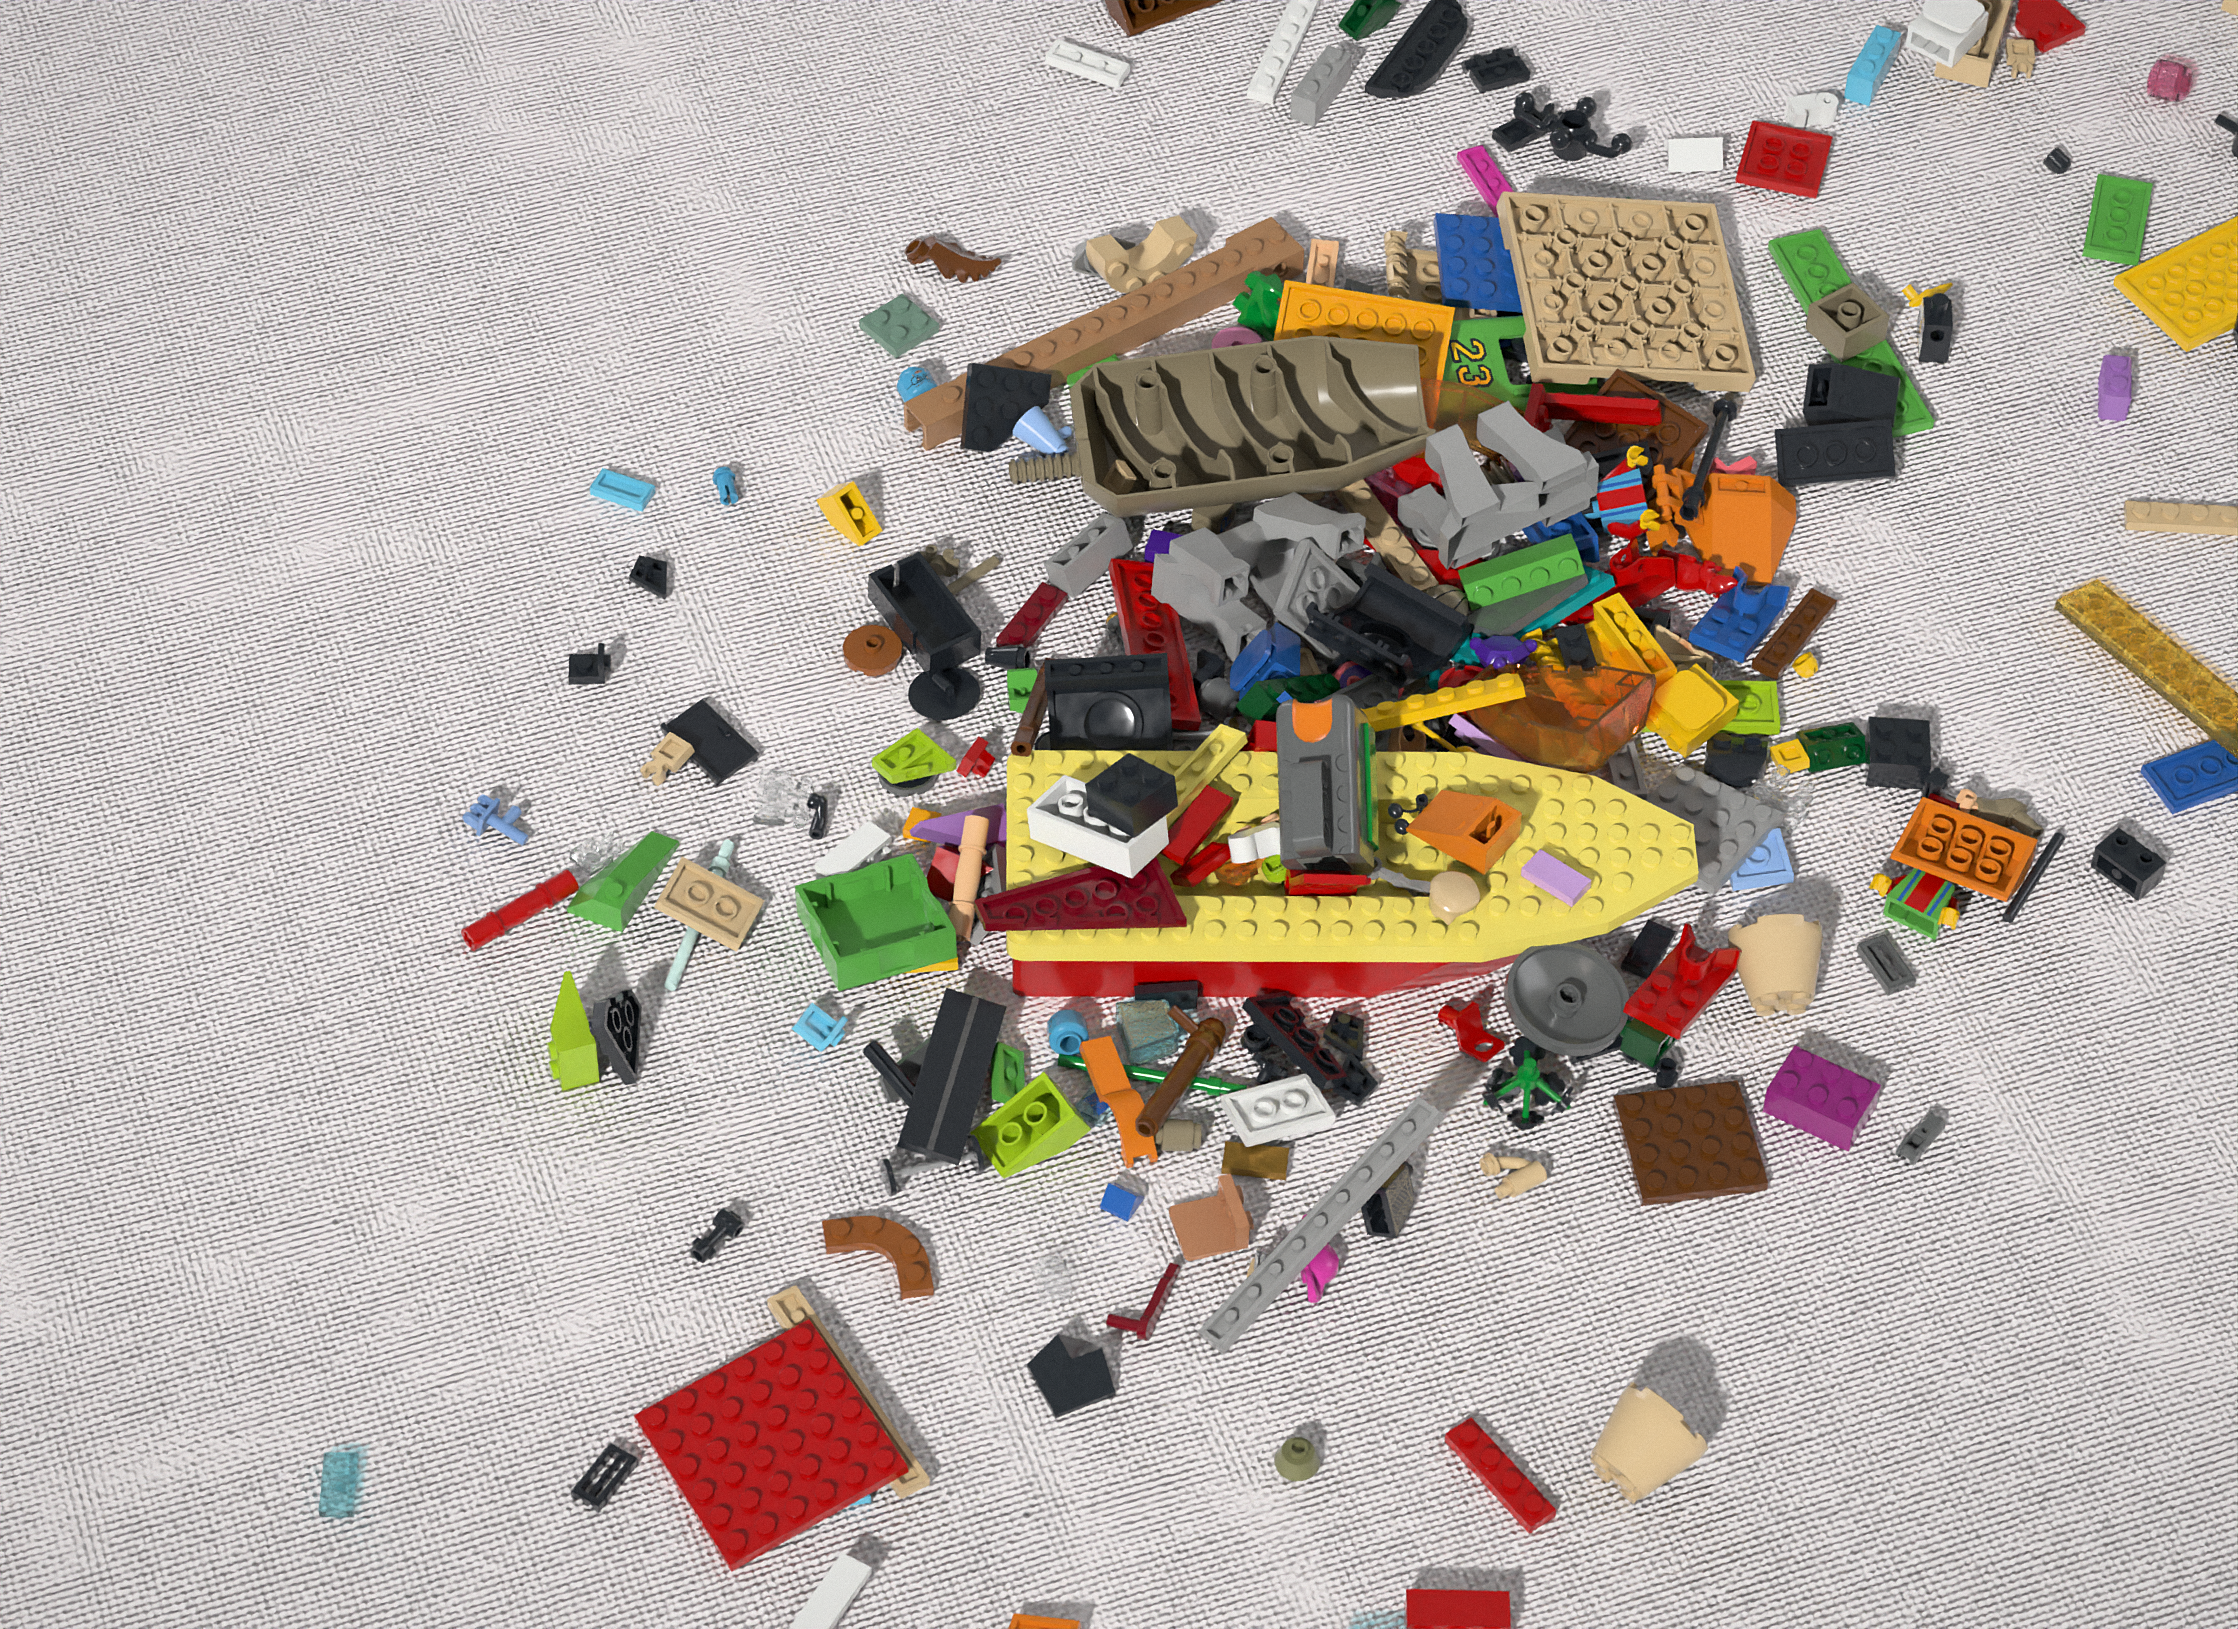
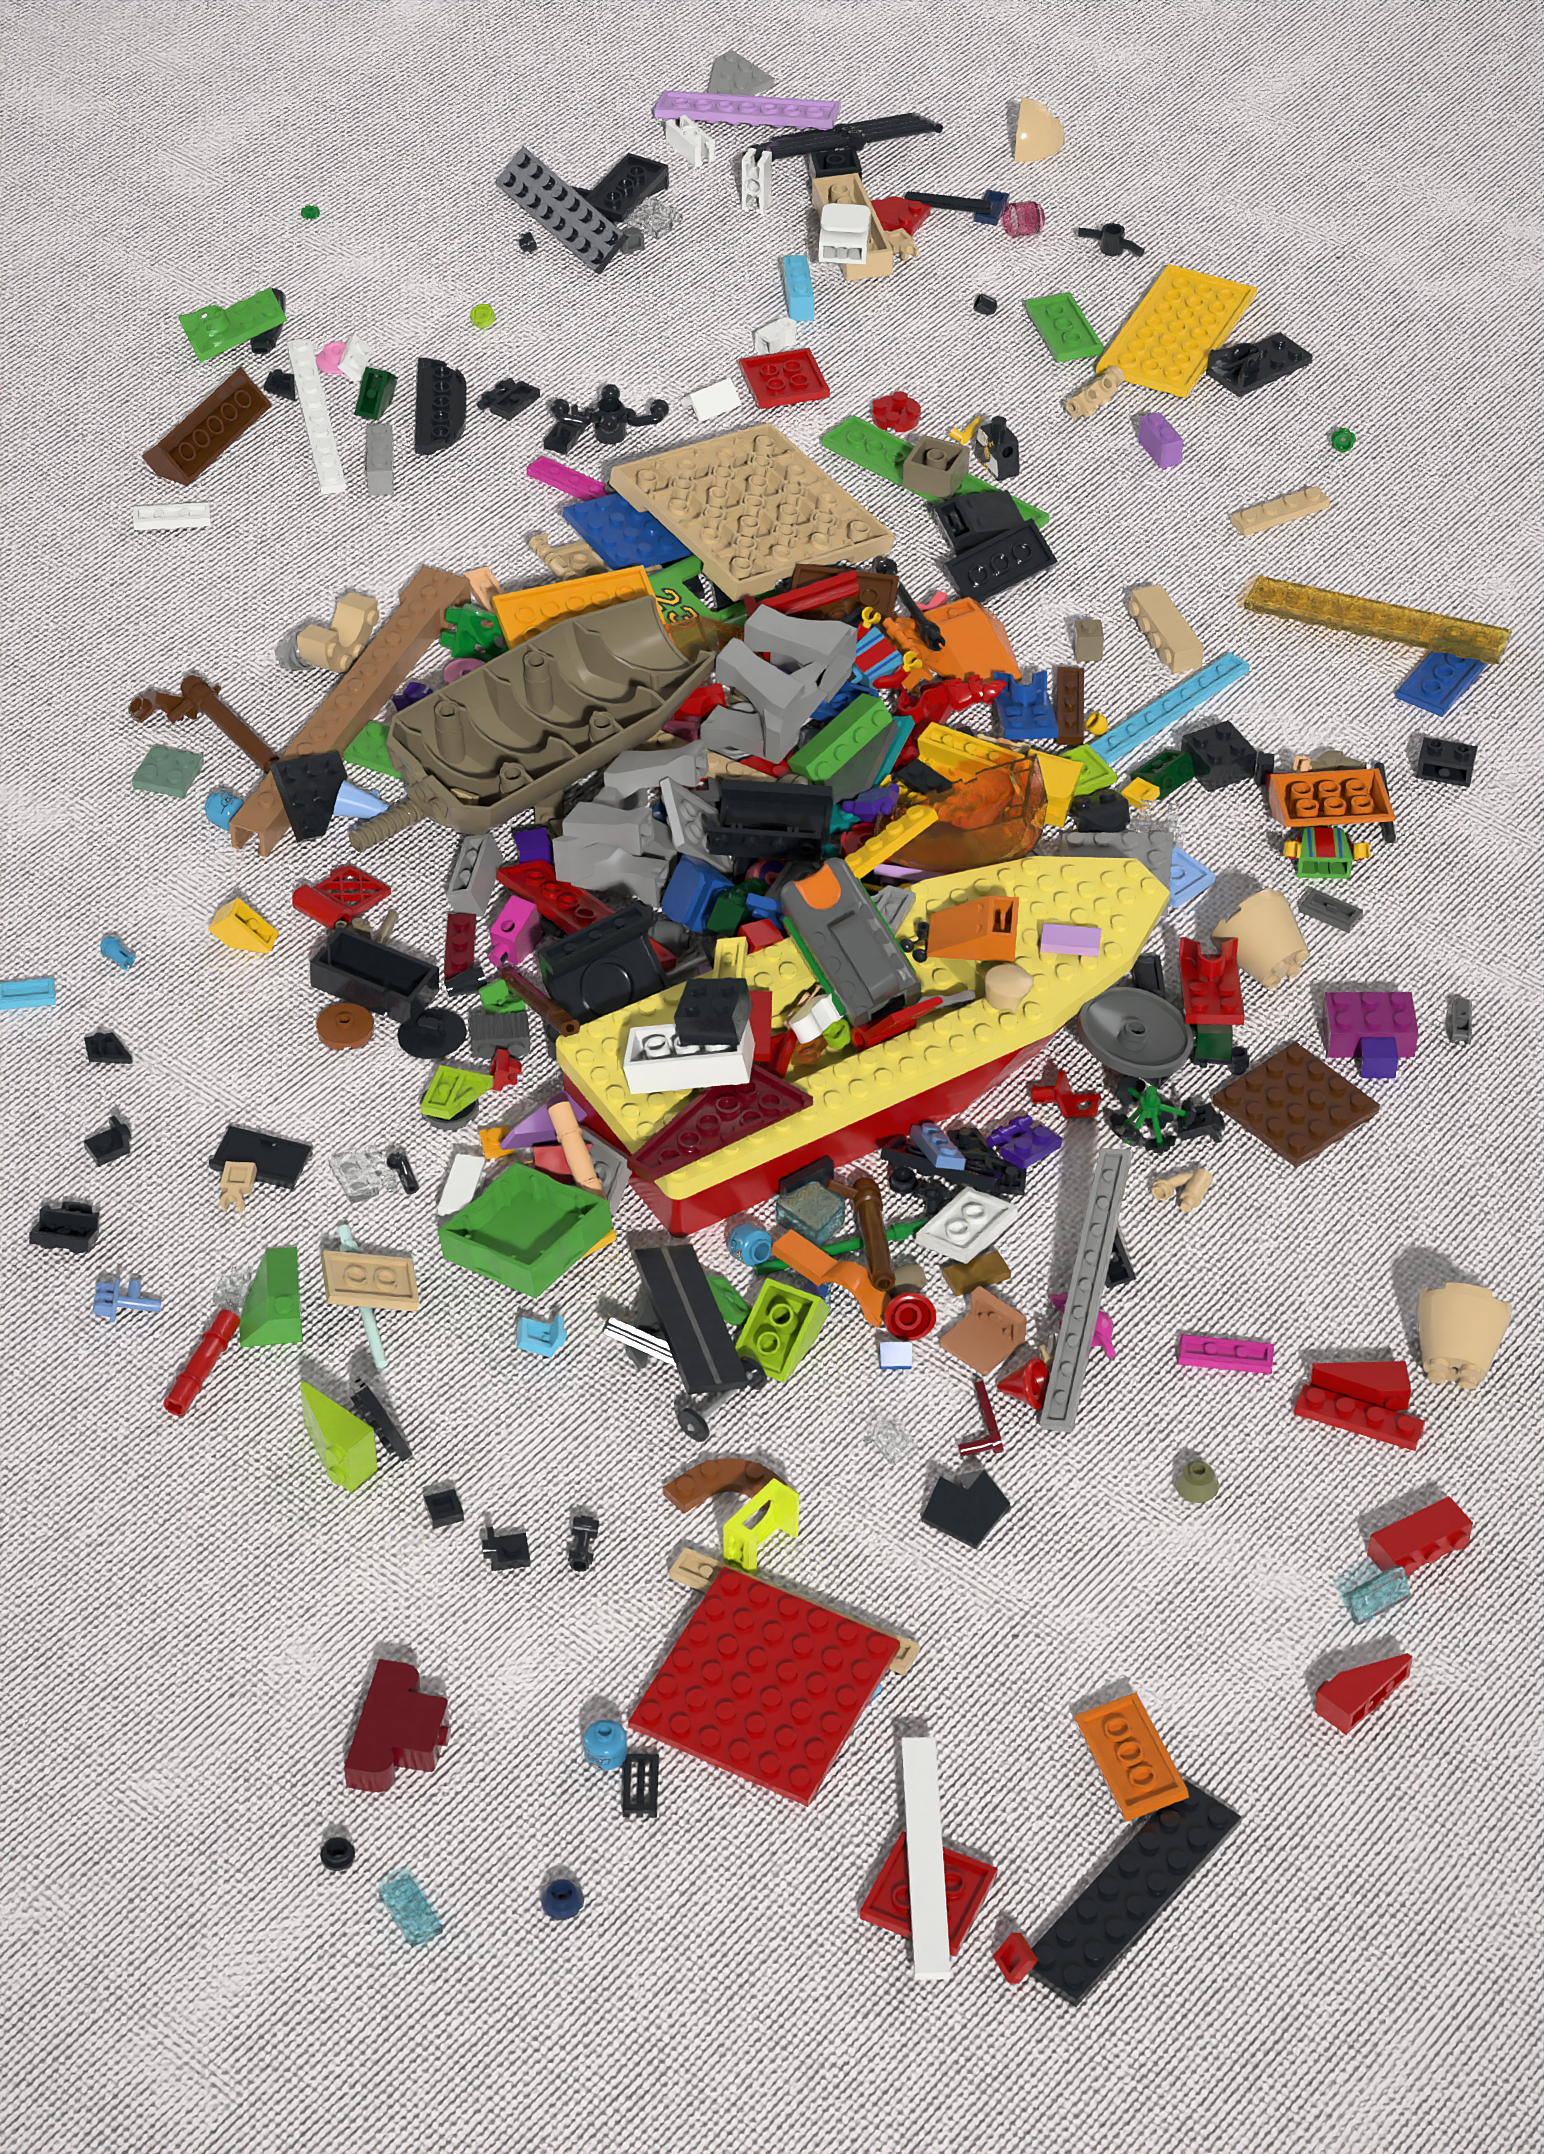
camera: 30 degrees left, 5 degrees down
(315, 1397) = (334, 1847): none -> black plate
(438, 1320) = (396, 1729): none -> dark red brick
(469, 1549) = (562, 1908): none -> dark blue plate
(497, 729) = (66, 1227): none -> black slope
(595, 1426) = (605, 1745): none -> dark azure head
(622, 1145) = (444, 1508): none -> black plate
(646, 1209) = (506, 1551): none -> black bracket
(838, 1313) = (741, 1543): none -> neon yellow panel
(941, 527) = (331, 907): none -> red piece
(975, 269) = (207, 701): none -> reddish brown cylinder
(992, 721) = (500, 1032): none -> dark grey brick
(1081, 629) = (515, 932): none -> dark pink torso
(1155, 1171) = (910, 1316): none -> red hat
(1169, 344) = (412, 694): none -> dark purple piece
(1214, 1287) = (1027, 1383): none -> red hat
(1304, 1021) = (937, 1146): none -> medium blue plate
(1400, 1062) = (1029, 1145): none -> dark purple plate
(1404, 767) = (894, 905): none -> light grey wing
(1424, 1352) = (1226, 1354): none -> dark pink tile
(1535, 1451) = (1375, 1383): none -> red slope
(1581, 1117) = (1205, 1122): none -> black bracket
(1803, 1135) = (1379, 1057): none -> dark purple panel
(1861, 233) = (896, 412): none -> red plate
(1864, 573) = (1088, 640): none -> dark tan brick
(1894, 680) = (1170, 707): none -> medium azure tile
(1955, 595) = (1166, 628): none -> tan brick
(2087, 307) = (1095, 393): none -> tan brick
(2107, 31) = (952, 202): none -> black axle
(2146, 54) = (999, 202): none -> dark blue tile

